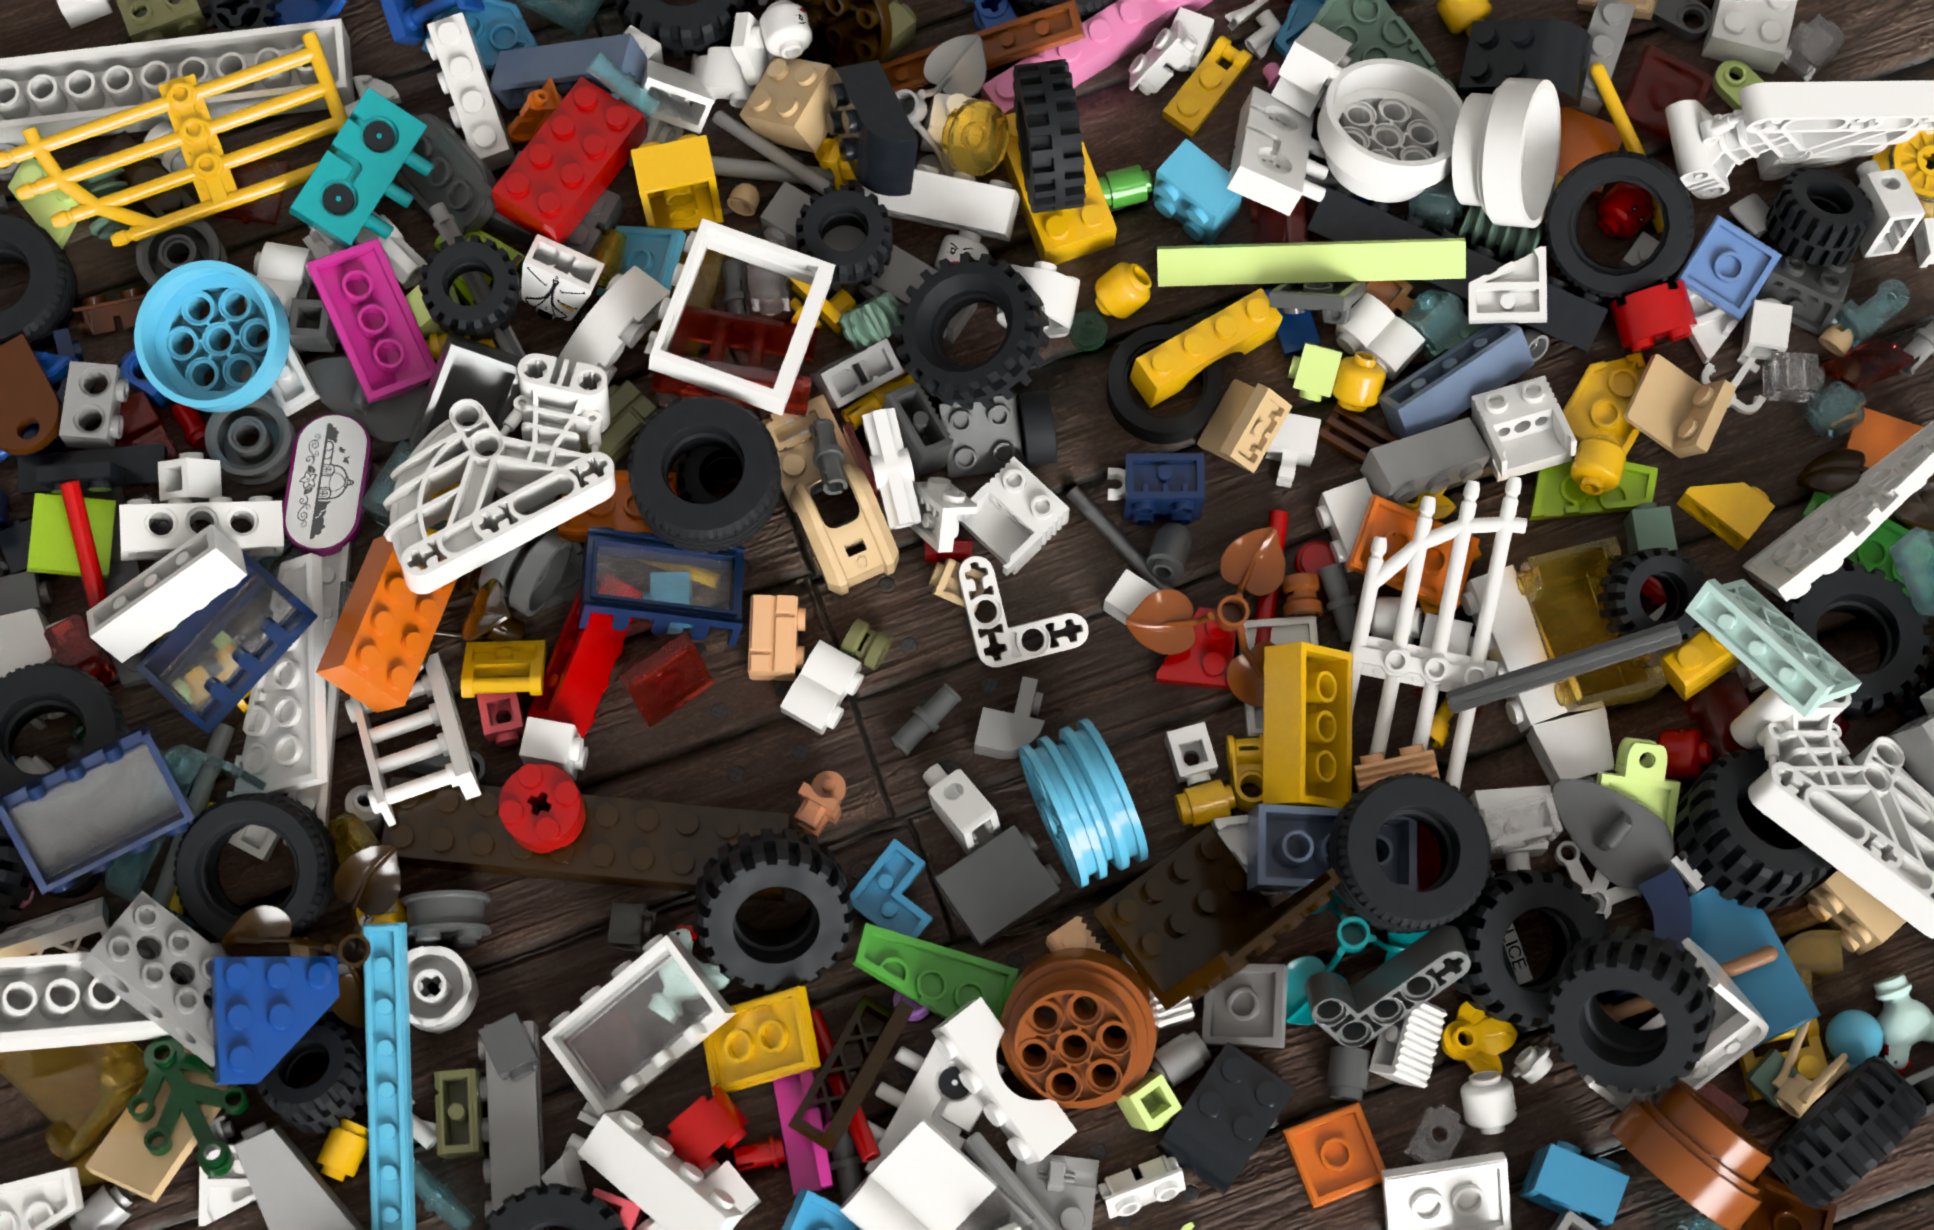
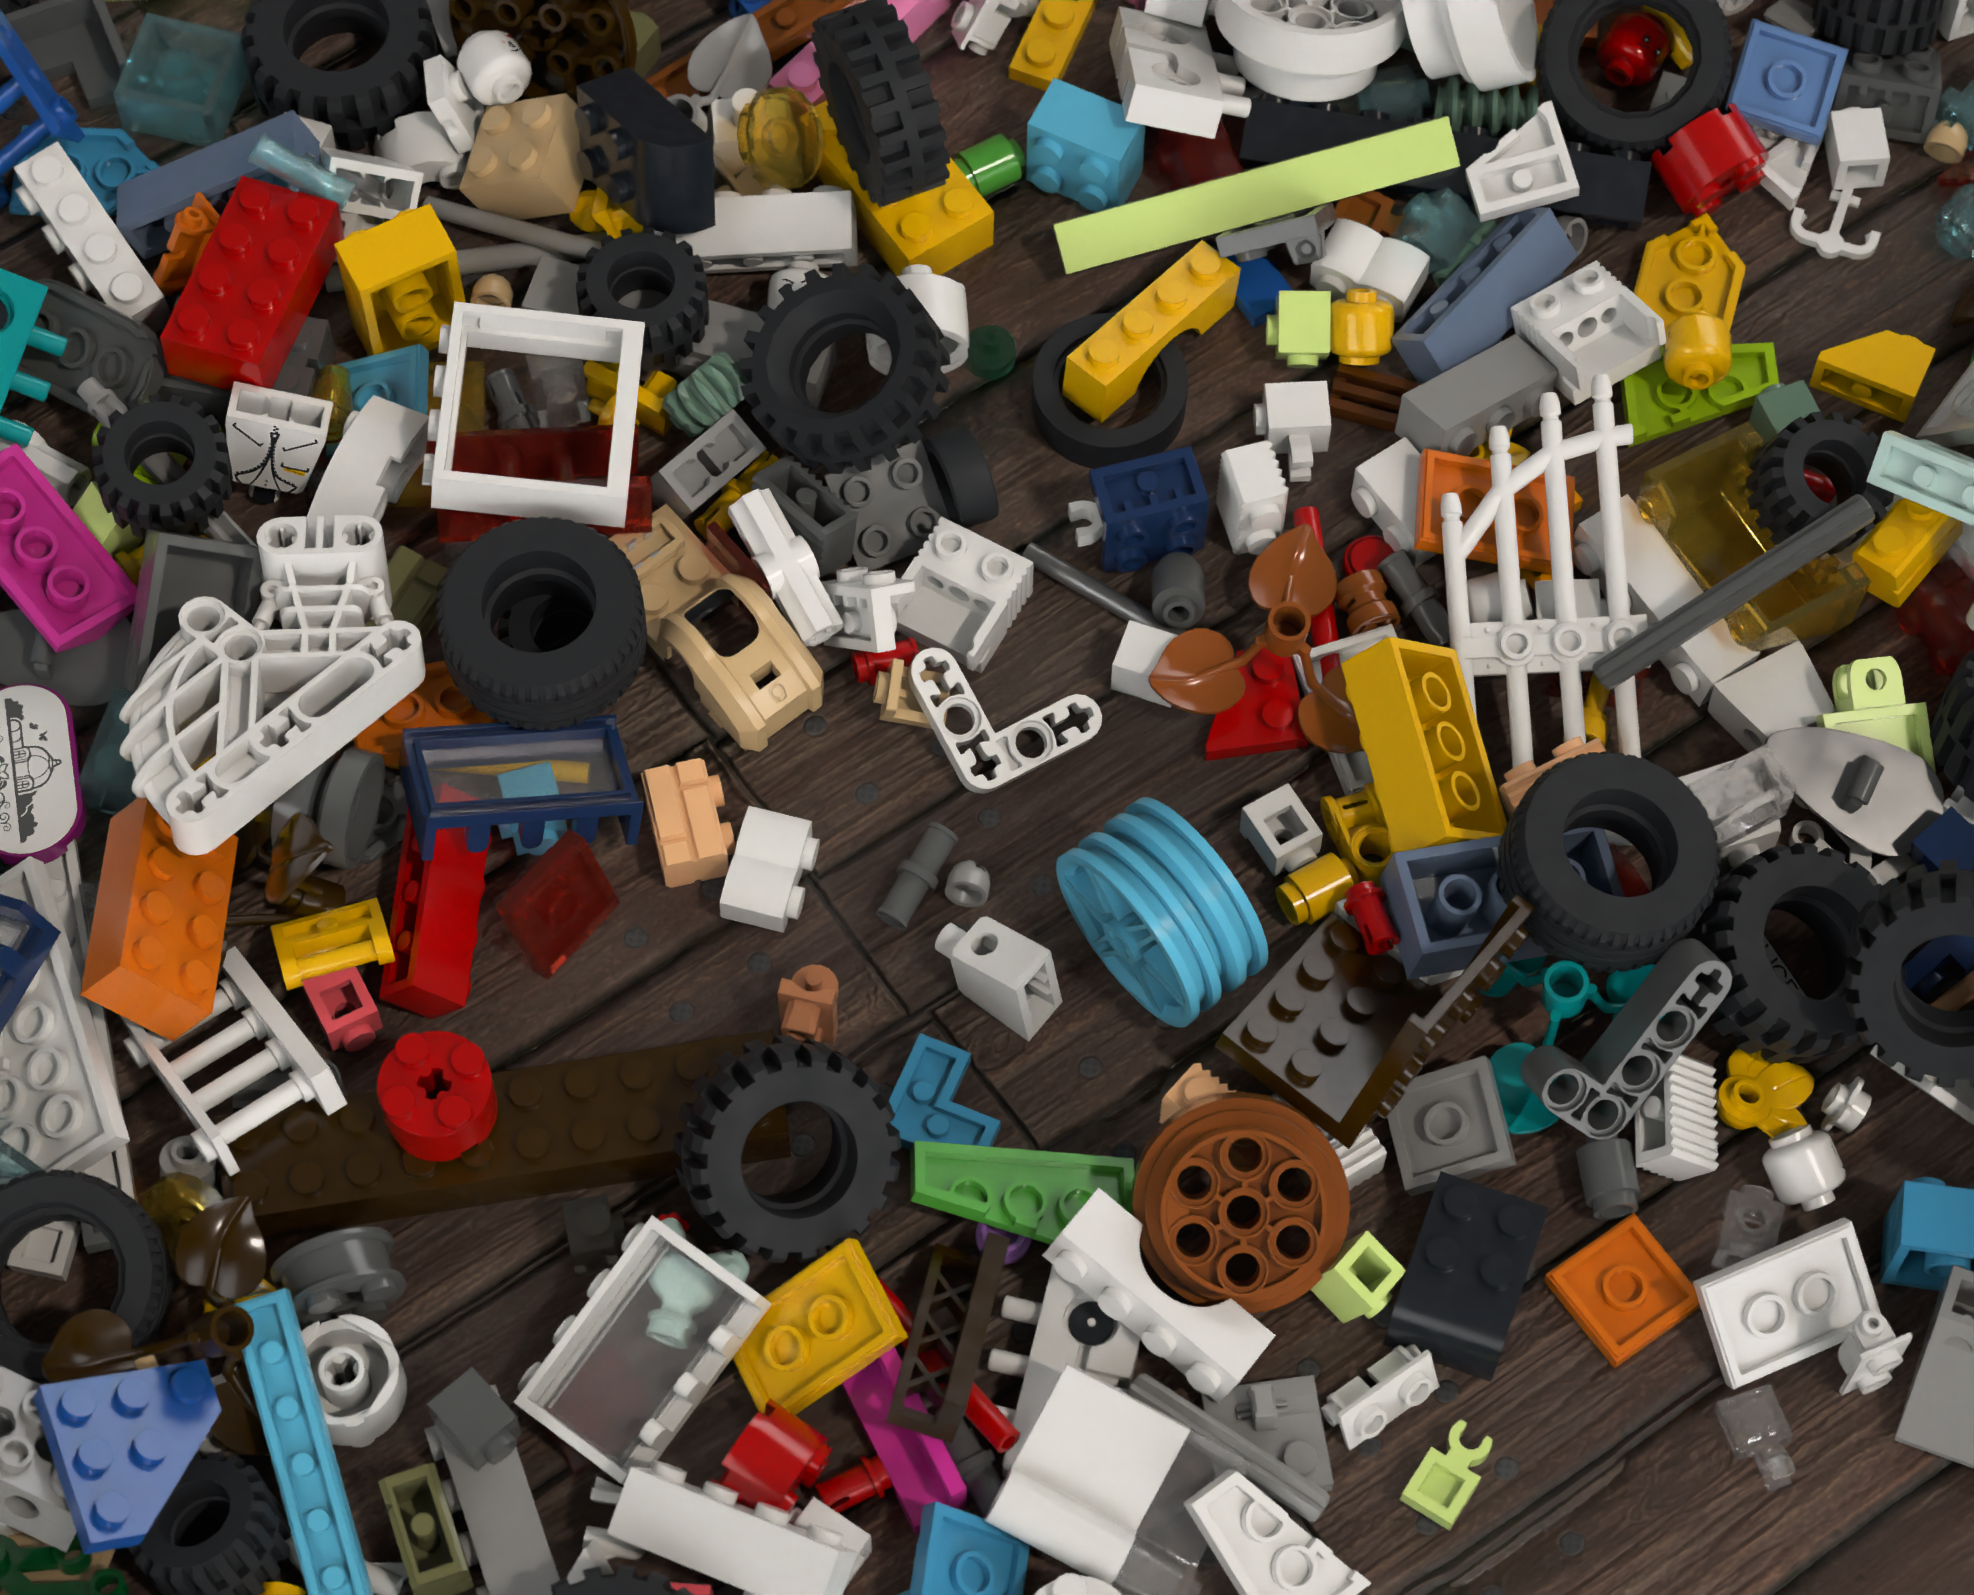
camera: 15 degrees left, 10 degrees down
(554, 745) = (424, 1008): white brick -> none
(828, 456) = (698, 569): dark grey pin -> none
(871, 644) = (812, 799): olive wheel -> none
(960, 733) = (968, 884): none -> light grey hinge
(998, 886) = (1075, 1060): dark grey brick -> none
(1004, 732) = (1026, 863): light grey brick -> none
(1122, 290) = (1022, 288): yellow head -> none
(1180, 1058) = (1386, 1212): light grey brick -> none
(1233, 839) = (1367, 907): none -> red pin
(1241, 497) = (1251, 497): none -> white brick
(1245, 424) = (1231, 403): tan bracket -> none
(1677, 408) = (1774, 268): tan bracket -> none
(1685, 753) = (1922, 671): red head -> none
(1791, 376) = (1904, 197): clear brick -> none

